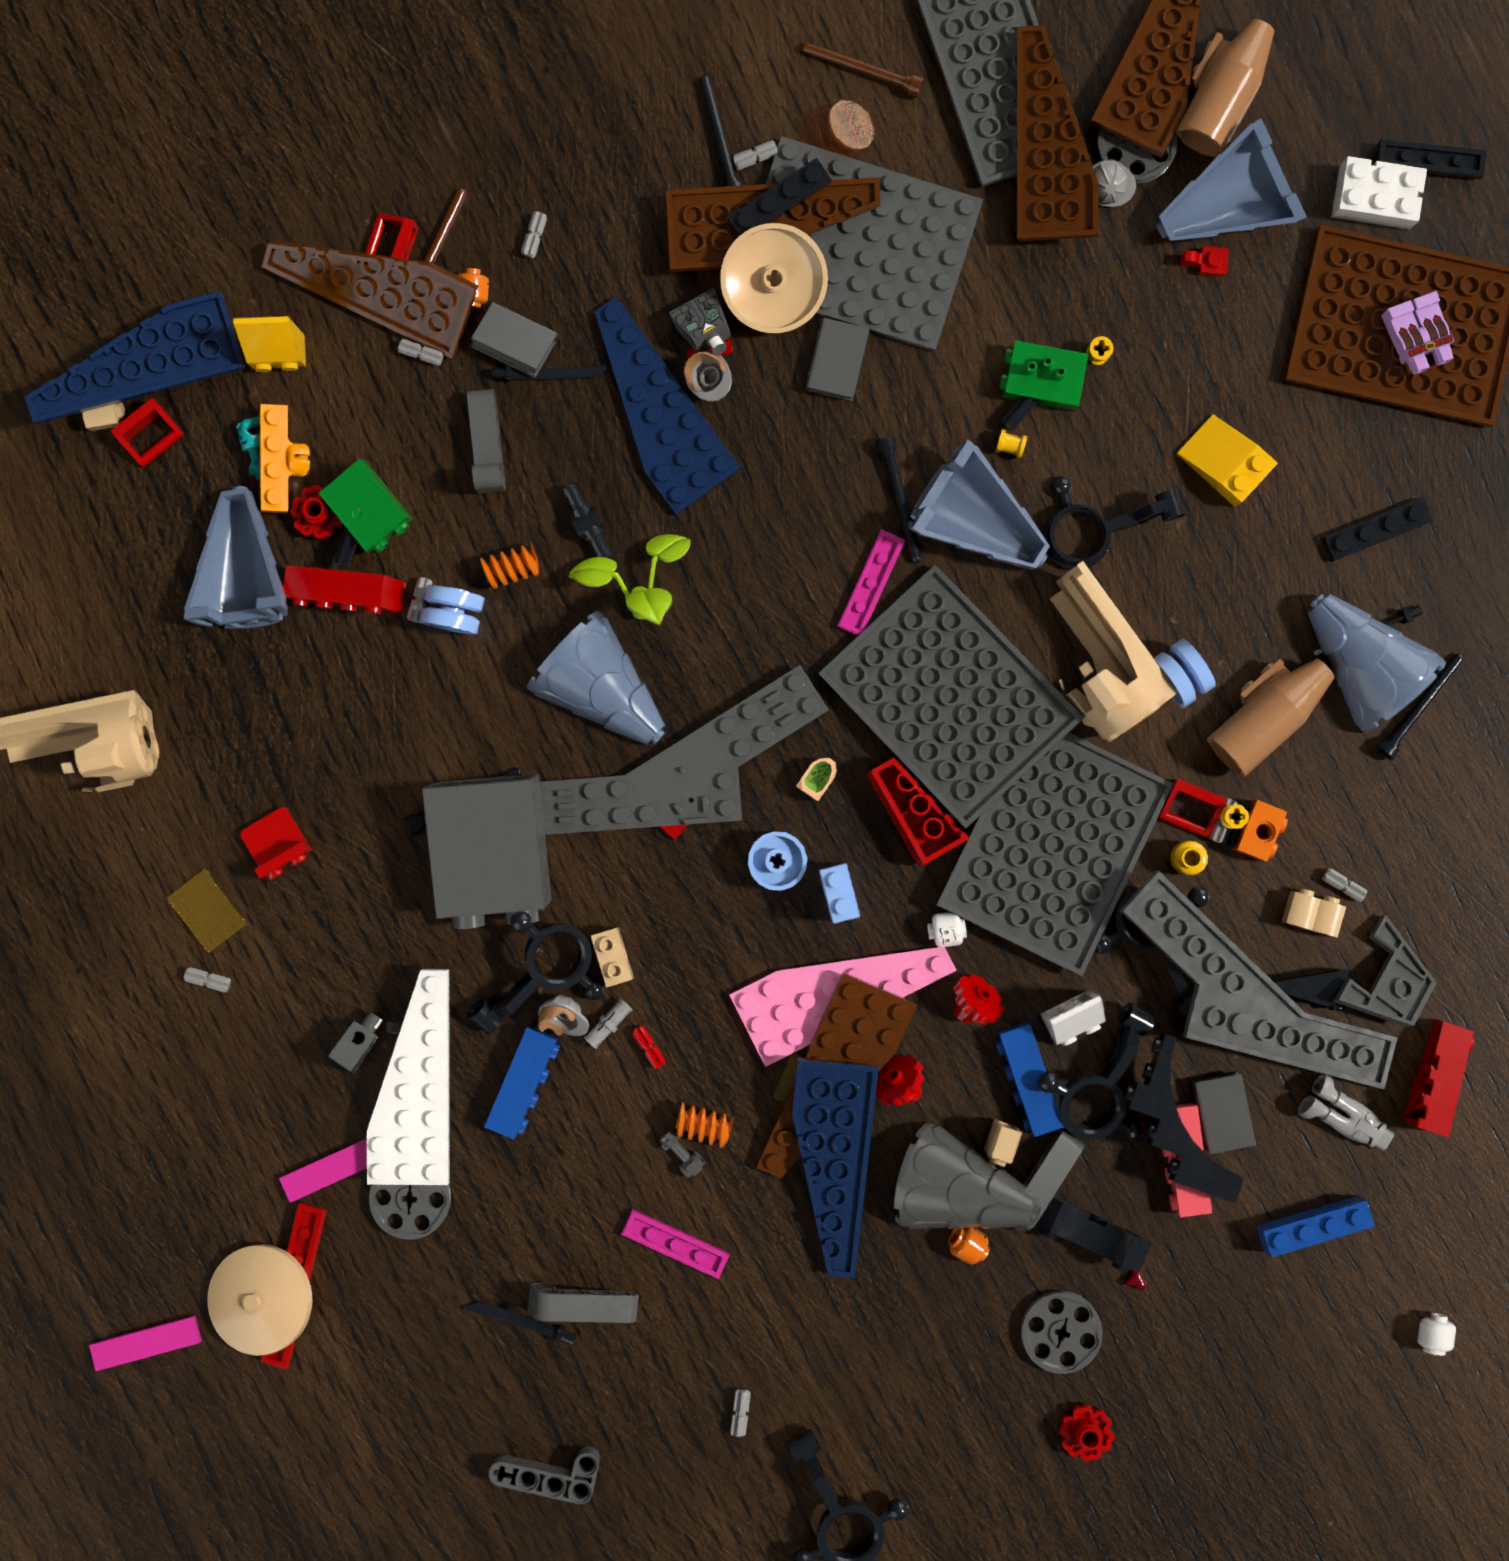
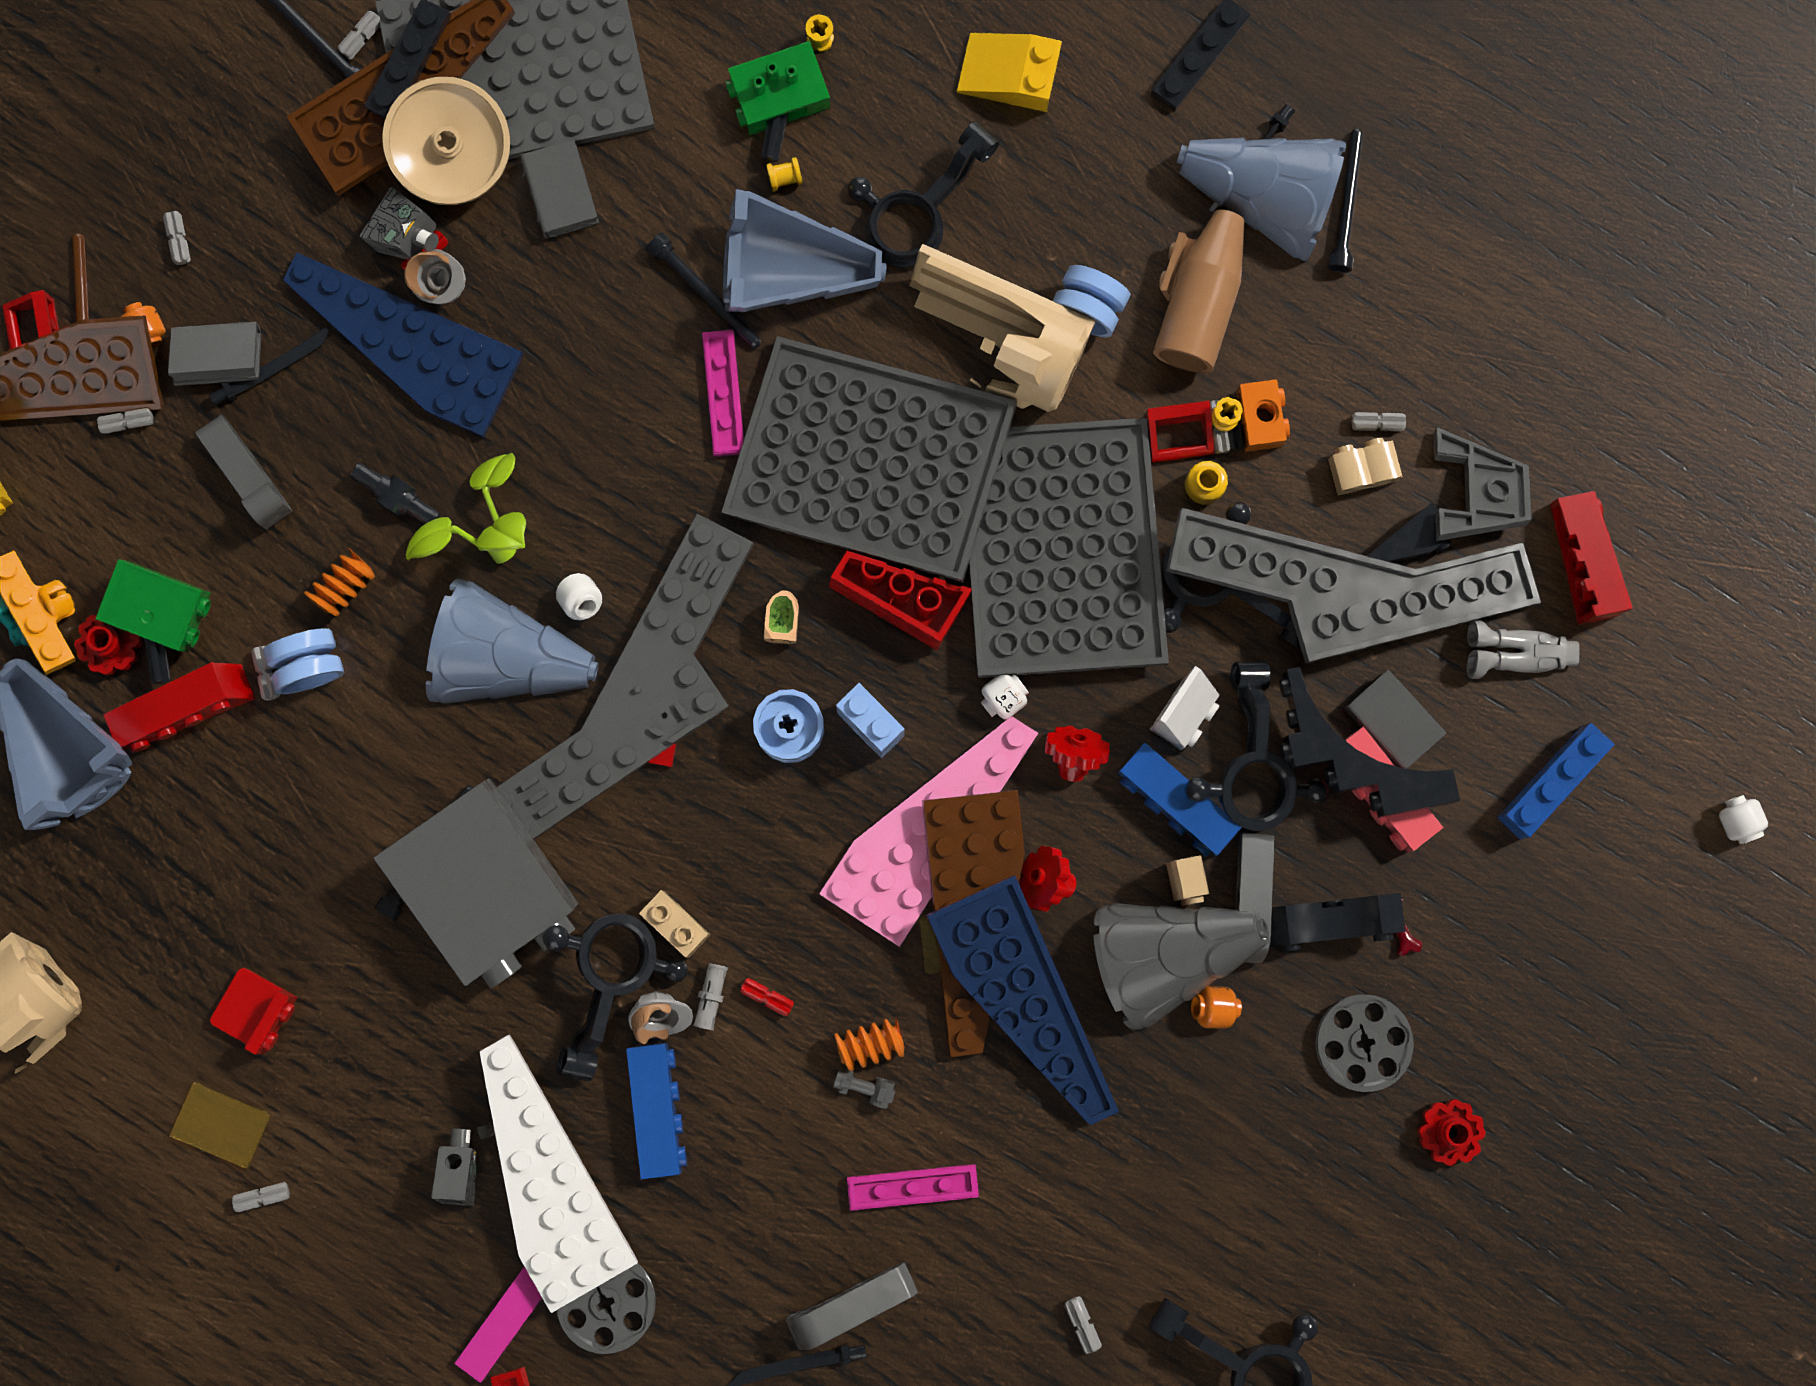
camera: 35 degrees left, 5 degrees down
(678, 676) = (579, 596): none -> white head

